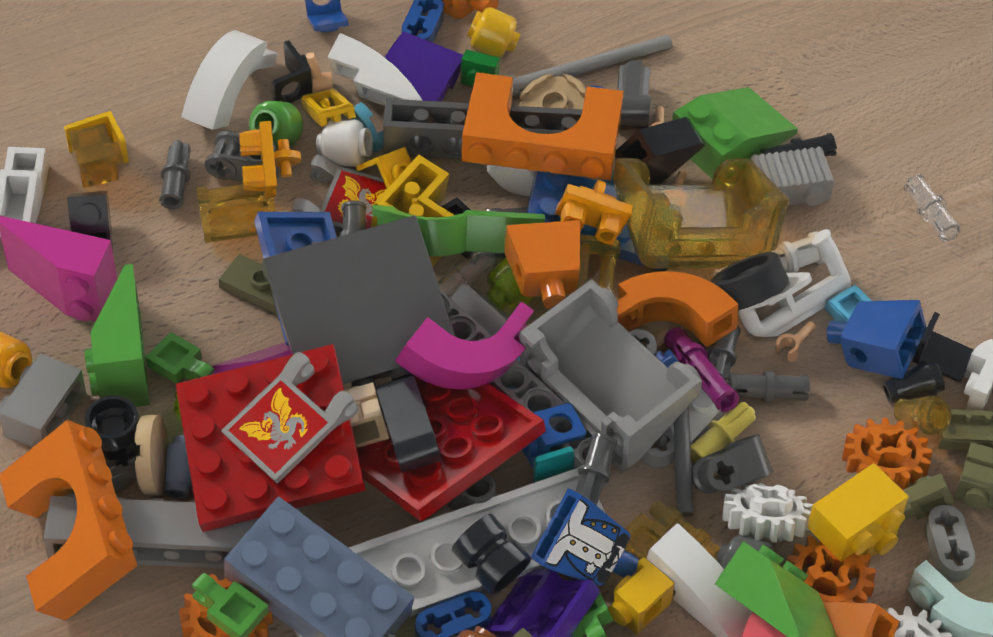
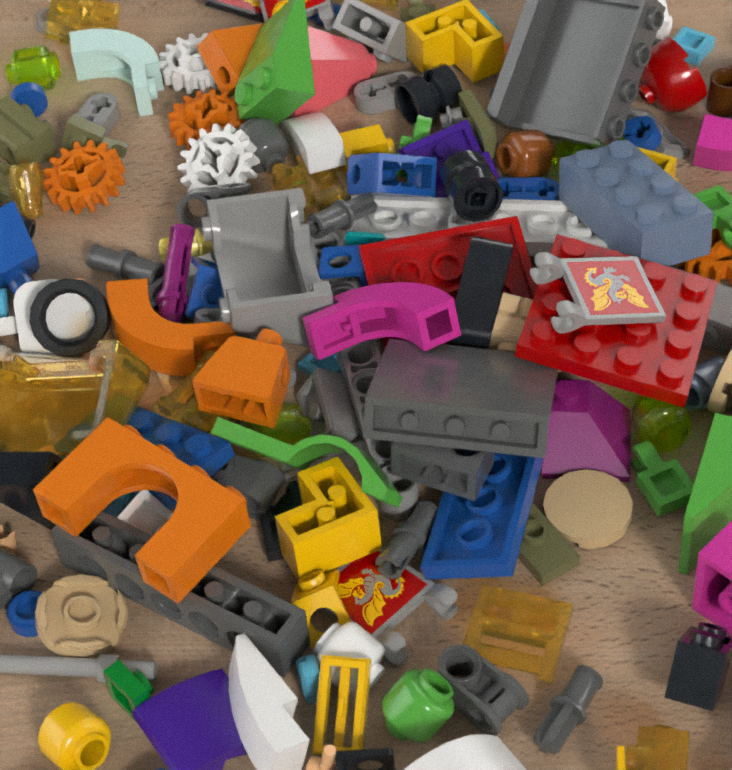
camera: 145 degrees left, 5 degrees down
(231, 324) = (589, 508): none -> tan tile
(261, 143) = (465, 620): light orange hips -> none
(595, 209) = (164, 410): light orange hips -> none
(860, 515) = (155, 115): yellow brick -> none

